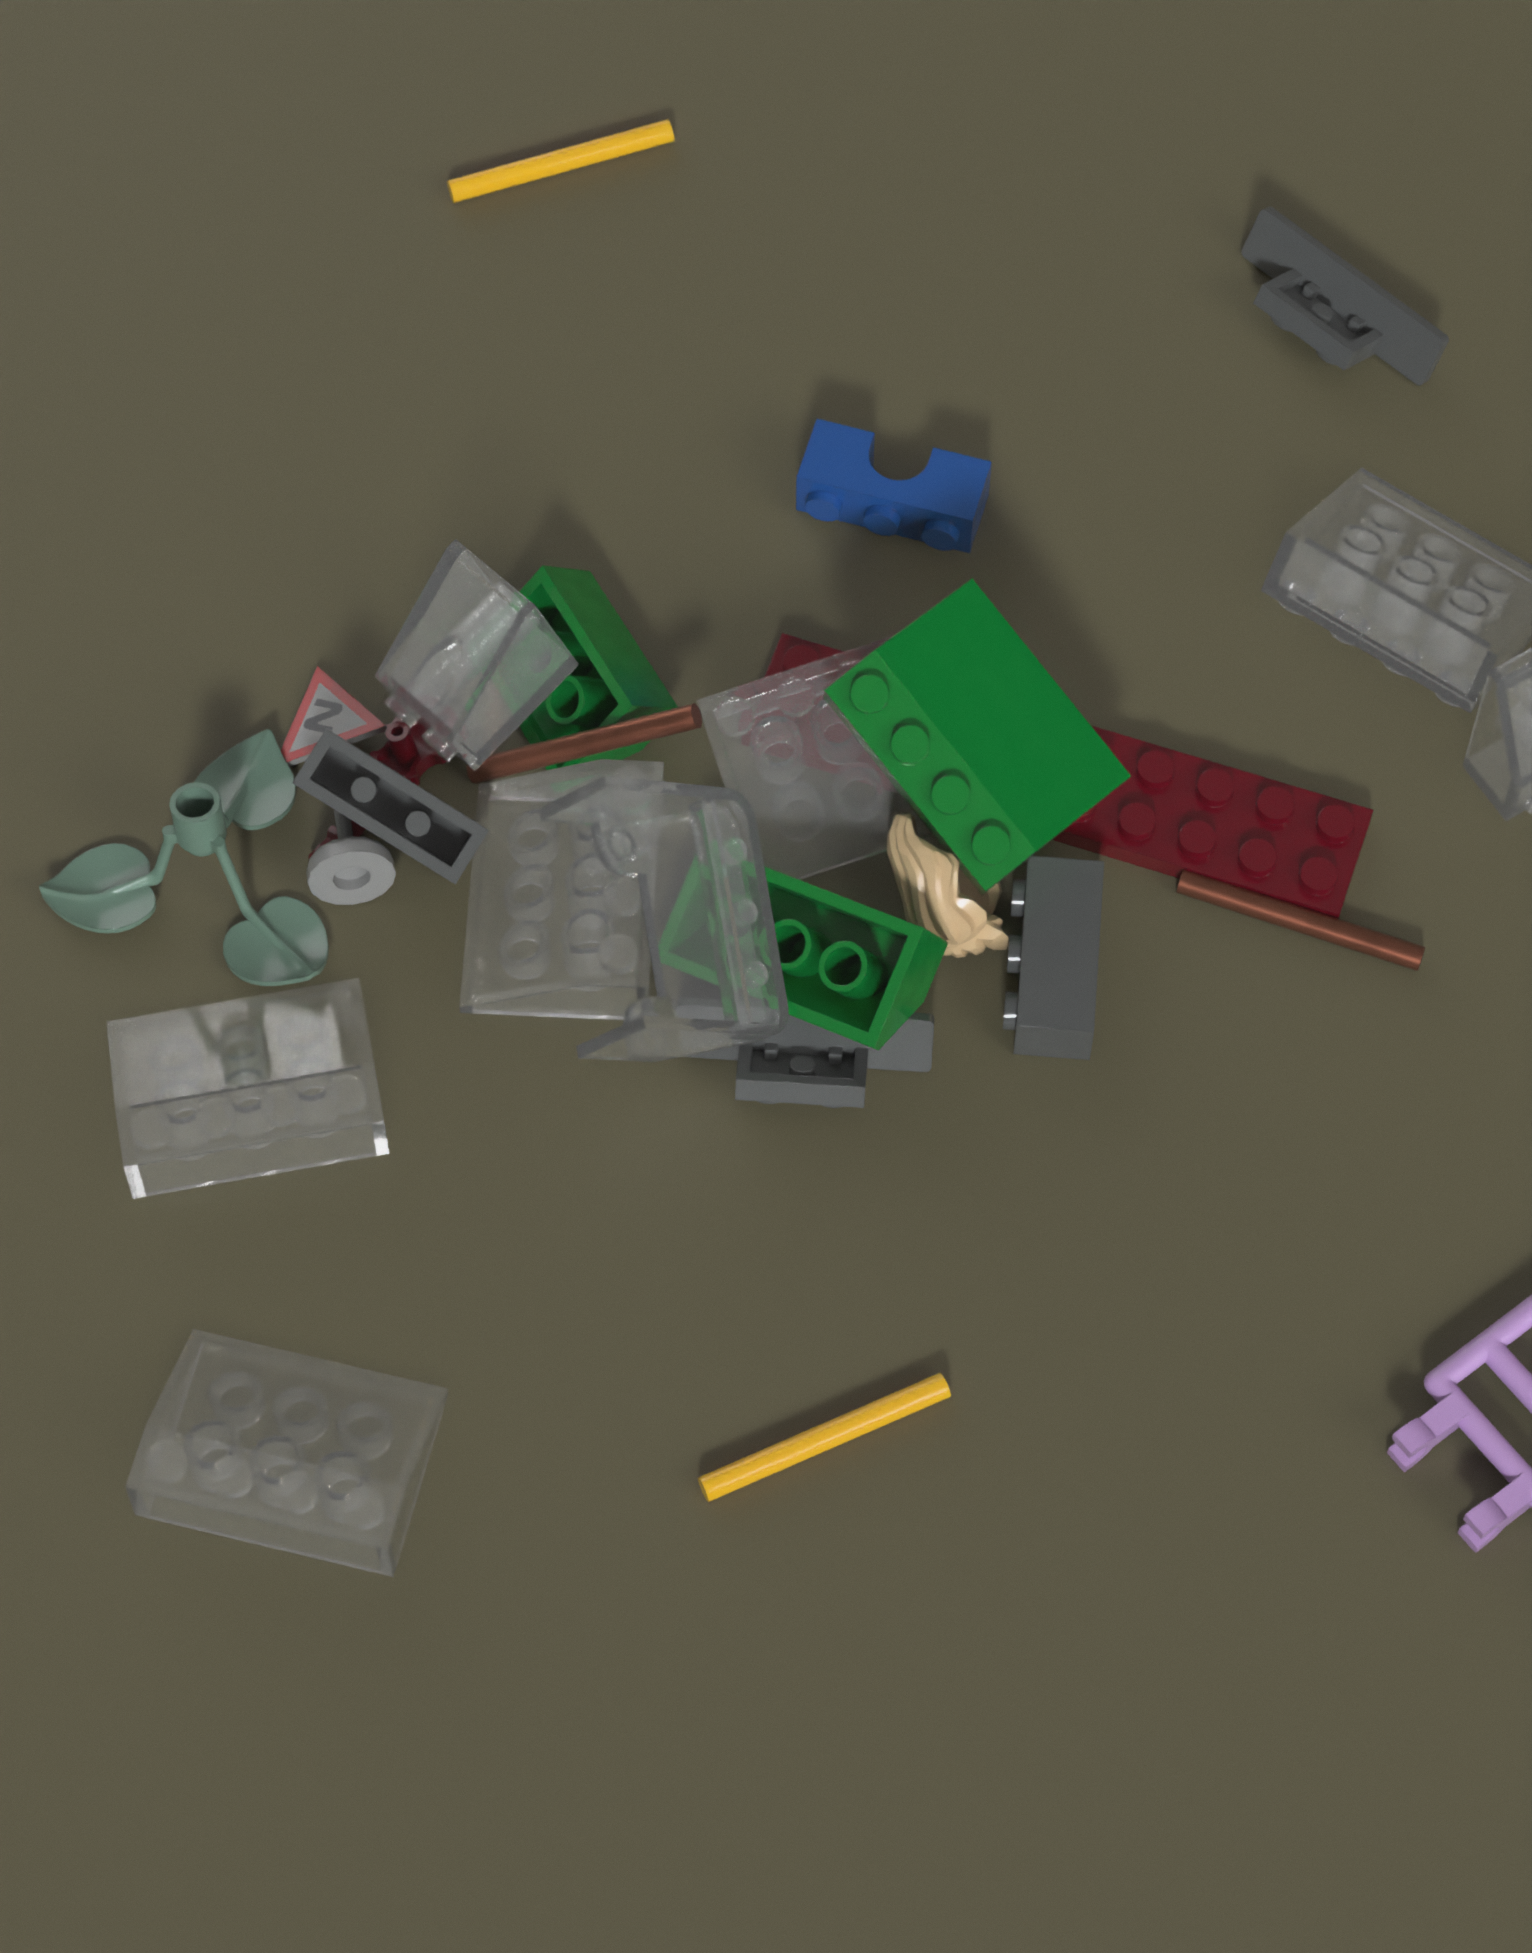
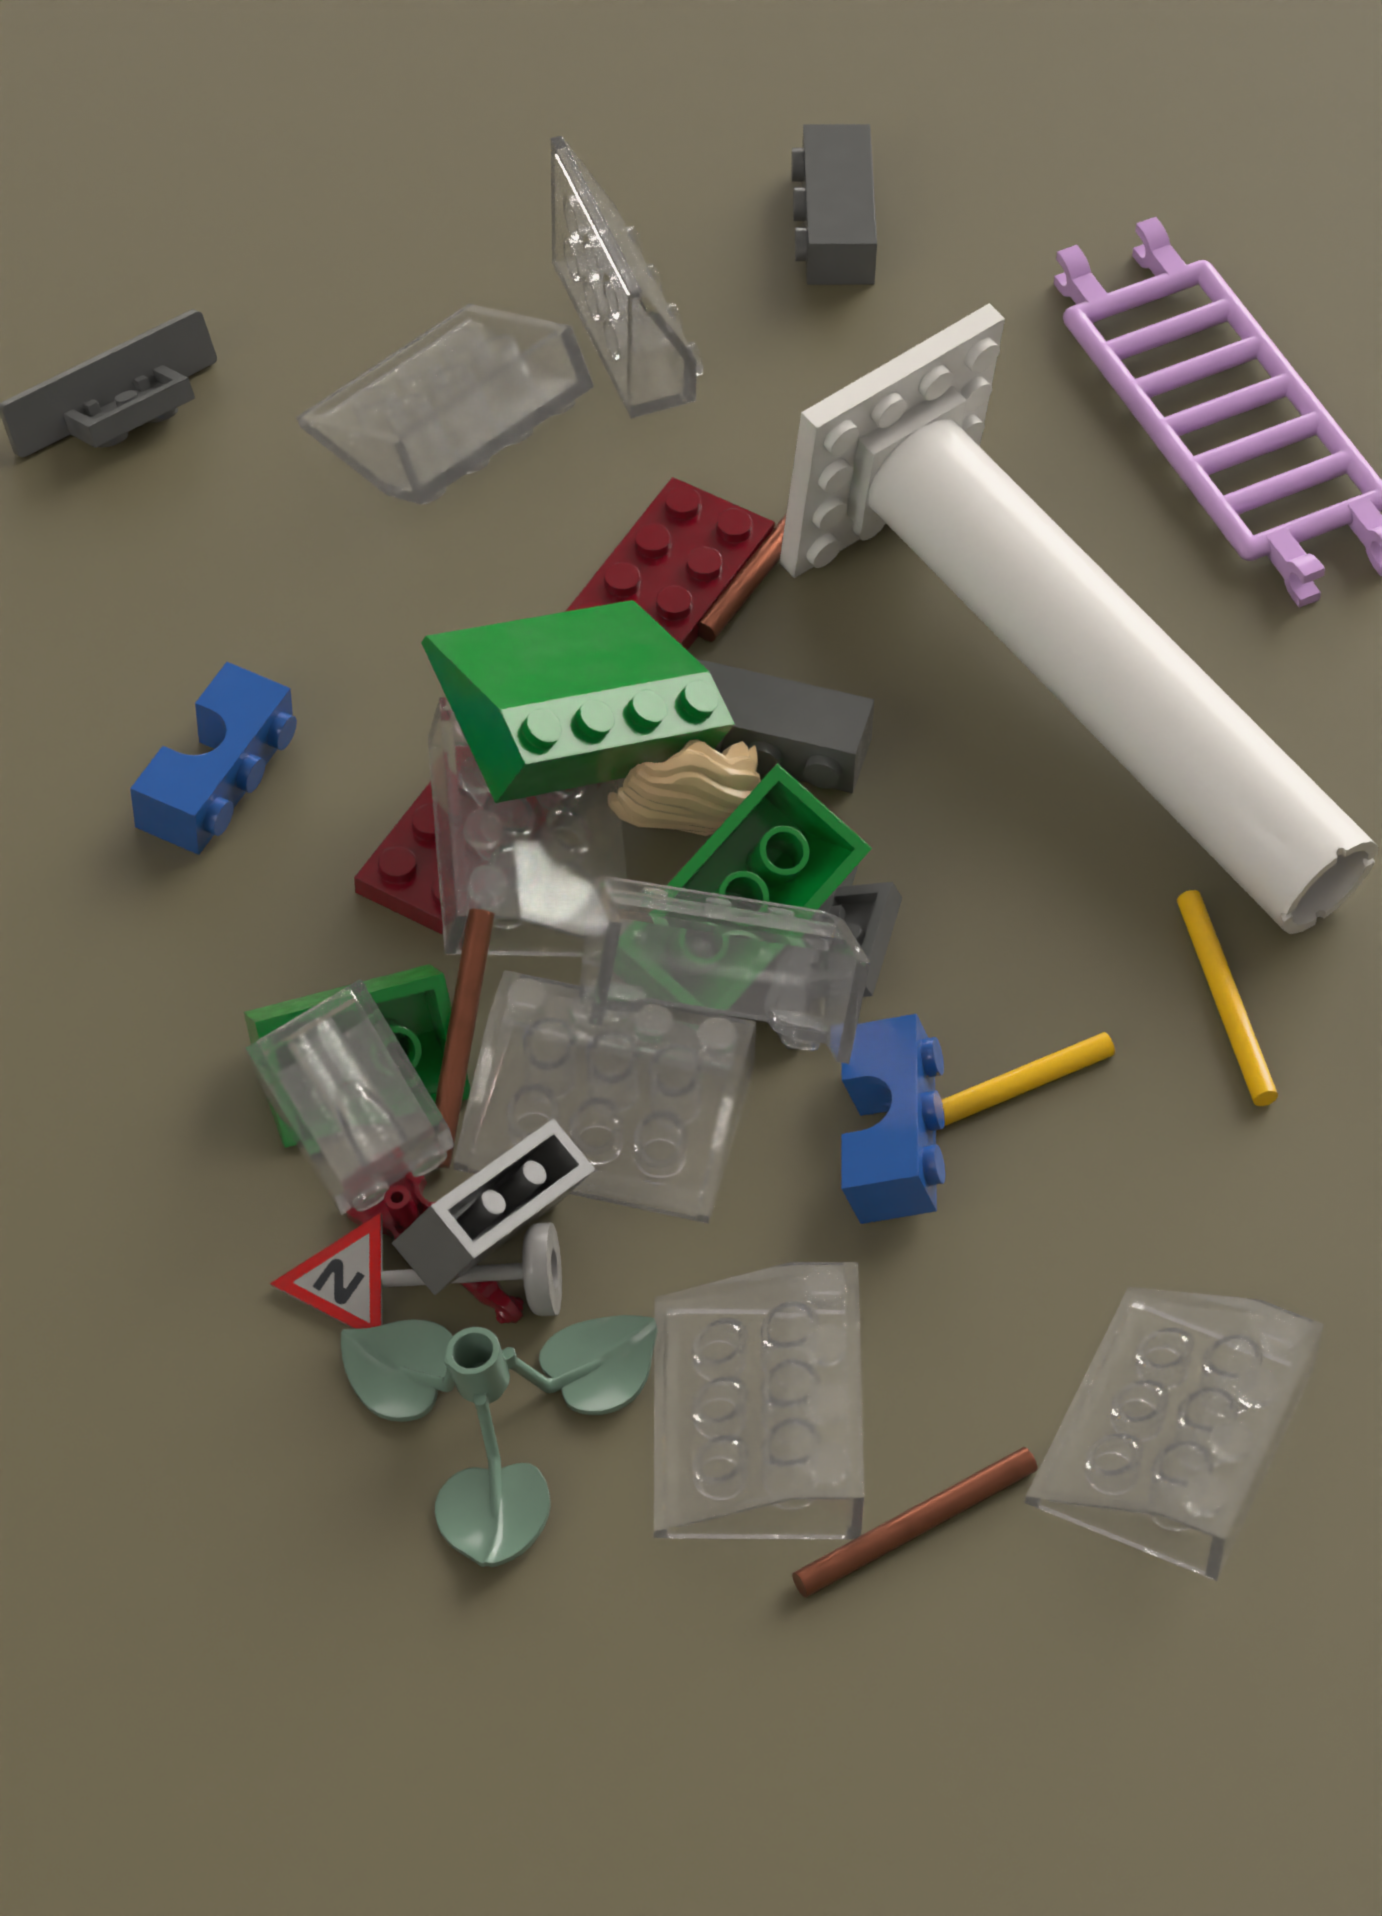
camera: 80 degrees left, 10 degrees down
(151, 1239) = (914, 1522): none -> copper bar
(540, 1153) = (895, 1163): none -> blue arch
(661, 1238) = (1027, 1077): none -> yellow bar
(1378, 994) = (910, 457): none -> white piece

